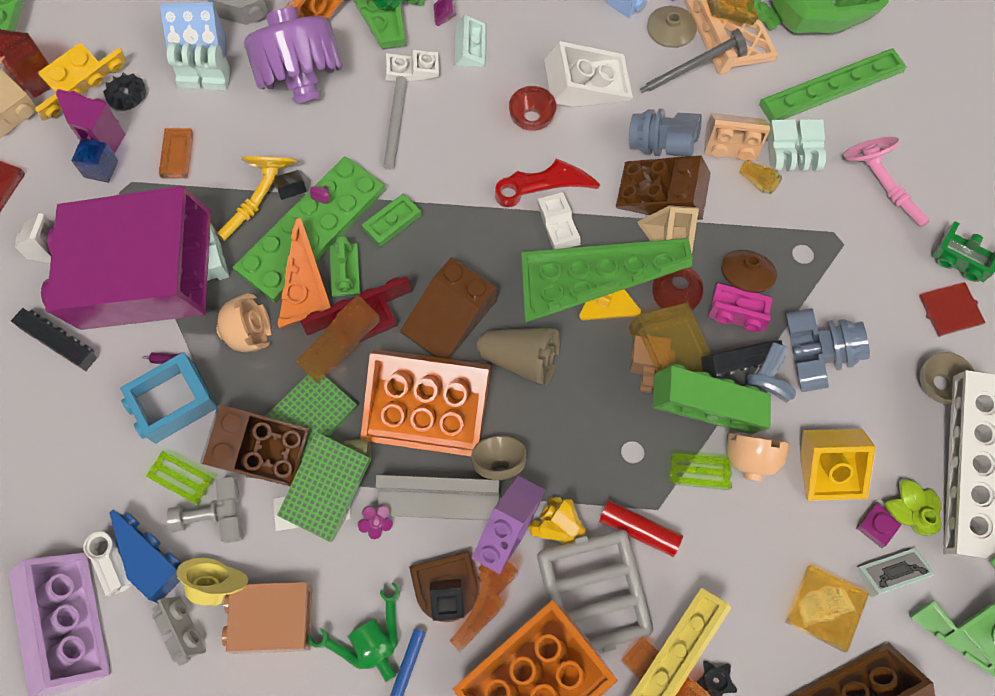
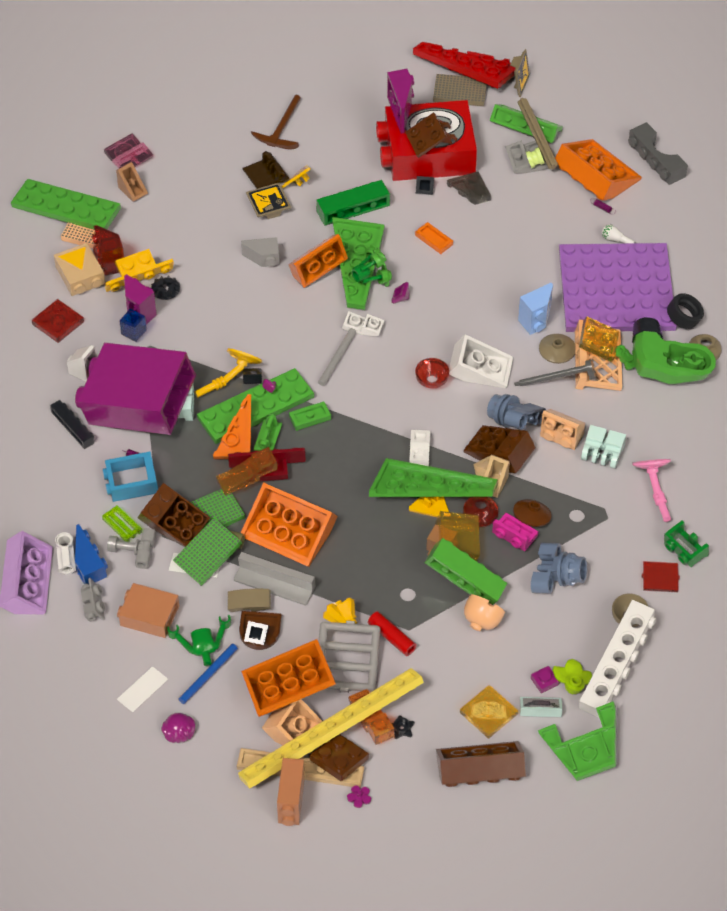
camera: 20 degrees right, 15 degrees down
(176, 153) = (185, 335): clear orange tile -> none
(193, 24) = (224, 262): light blue slope -> none
(199, 68) = (223, 286): light aqua legs -> none
(209, 581) = (119, 580): light yellow piece -> none
(244, 324) = (192, 447): light nougat cylinder -> none
(288, 50) = (286, 291): medium lavender piece -> none
(374, 521) = (230, 581): magenta plant -> none
(414, 545) = (252, 599): none -> dark tan slope
(449, 309) = (325, 477): reddish brown slope -> none
(470, 42) = (410, 320): light aqua slope -> none
(486, 605) = (291, 631): clear orange slope -> none
(499, 452) = (320, 567): dark tan piece -> none
(508, 524) = (311, 590): medium lavender window -> none
(522, 351) = (362, 514): dark tan cone -> none
(556, 176) = (433, 421): red piece -> none
(726, 473) = (446, 612): clear neon green tile -> none
(735, 359) = (500, 558): black piece -> none
(761, 176) = (570, 460): clear yellow cone -> none
(765, 376) = (506, 574): sand blue piece -> none
(832, 85) = (652, 417): bright green tile -> none
(836, 464) = (532, 636): yellow slope -> none

